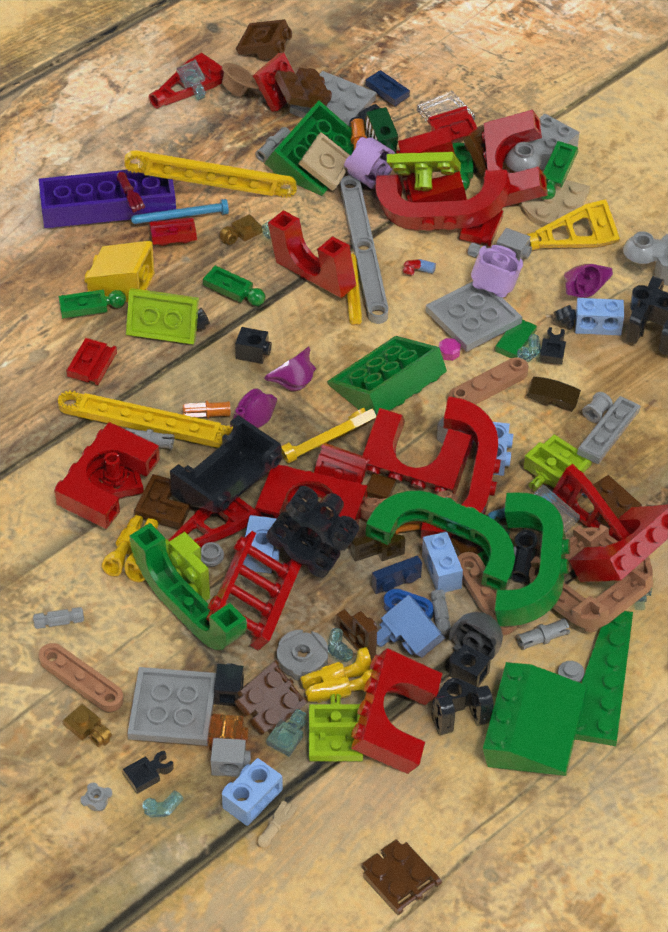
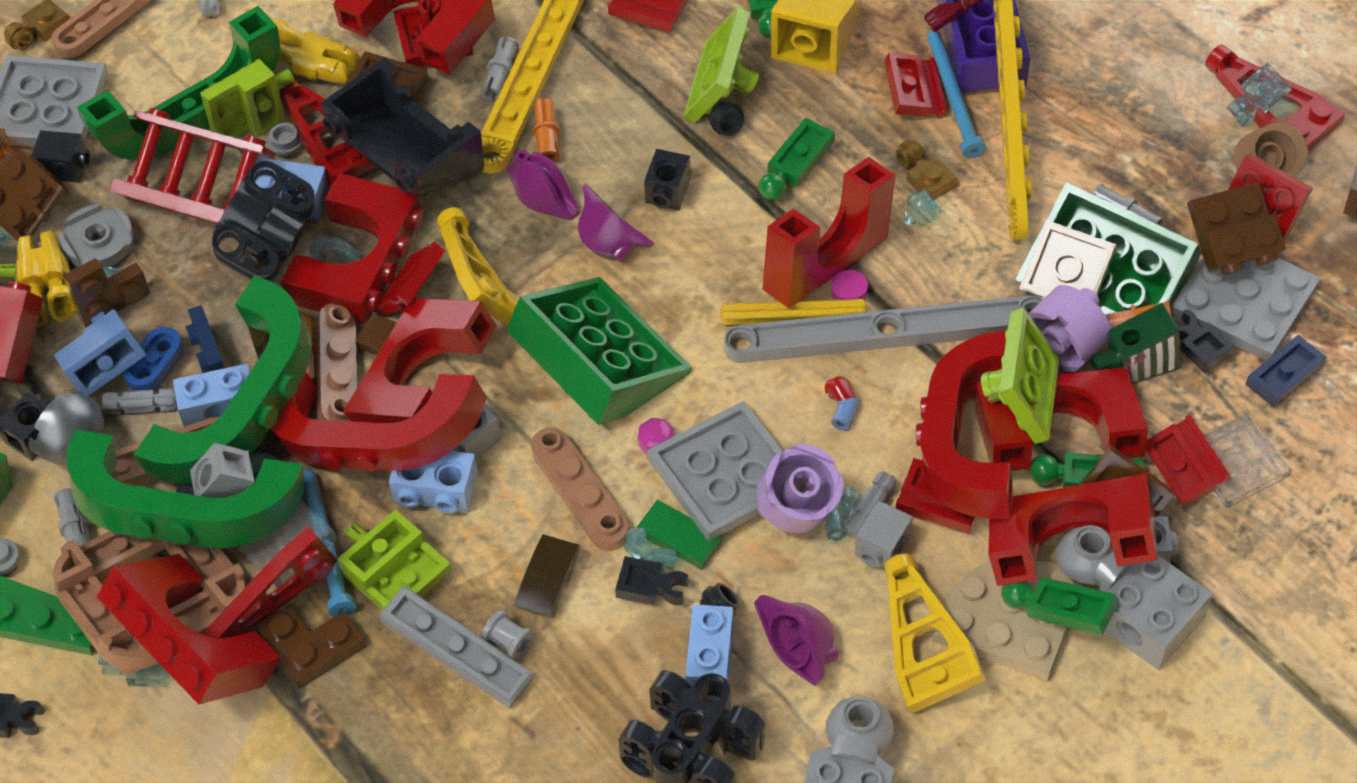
camera: 95 degrees right, 5 degrees up
(515, 522) = (222, 472): none -> light grey brick

